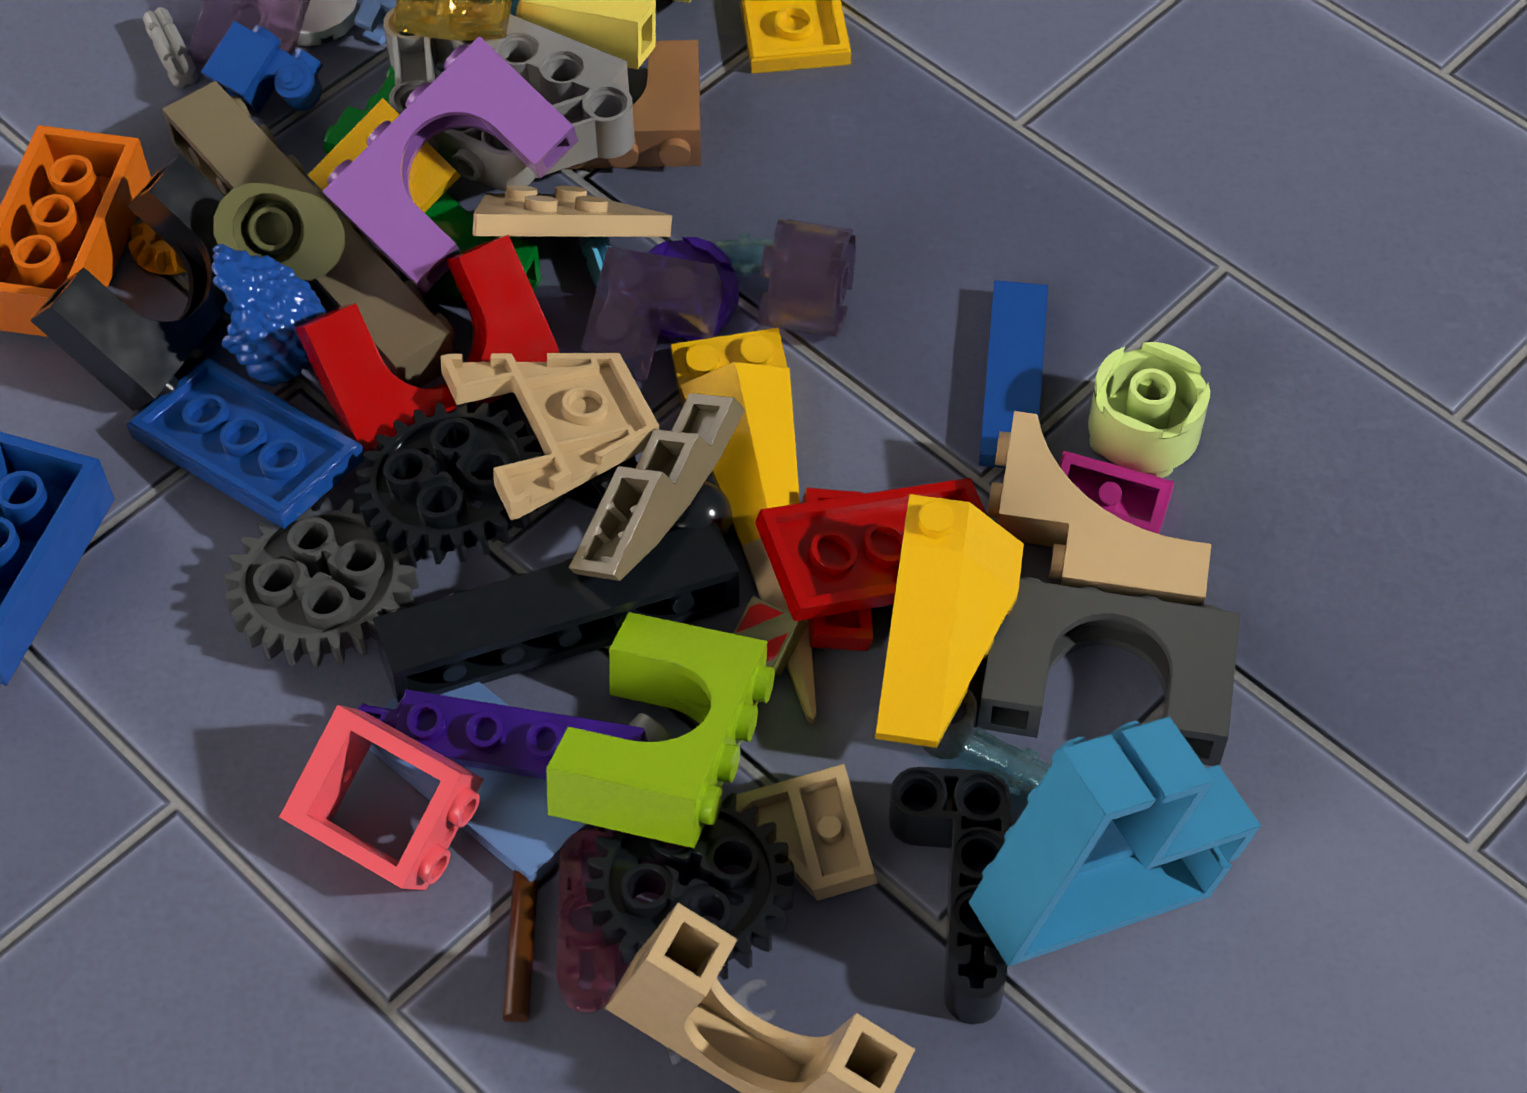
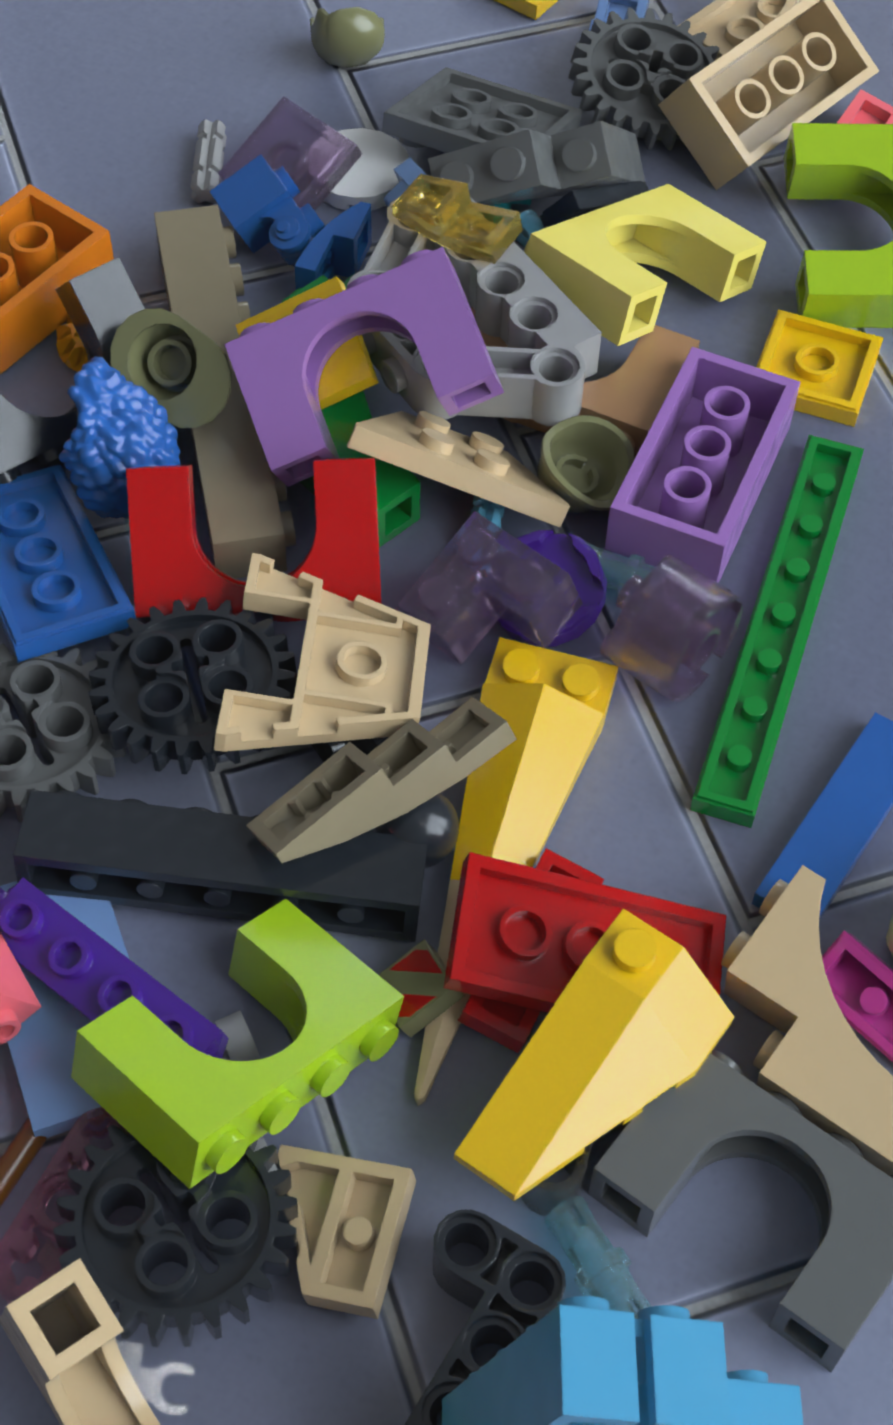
camera: 25 degrees right, 0 degrees up
(338, 80) = (337, 247): none -> blue slope
(662, 175) = (585, 462): none -> olive helmet
(757, 138) = (702, 463): none -> medium lavender brick
(883, 249) = (777, 634): none -> green tile

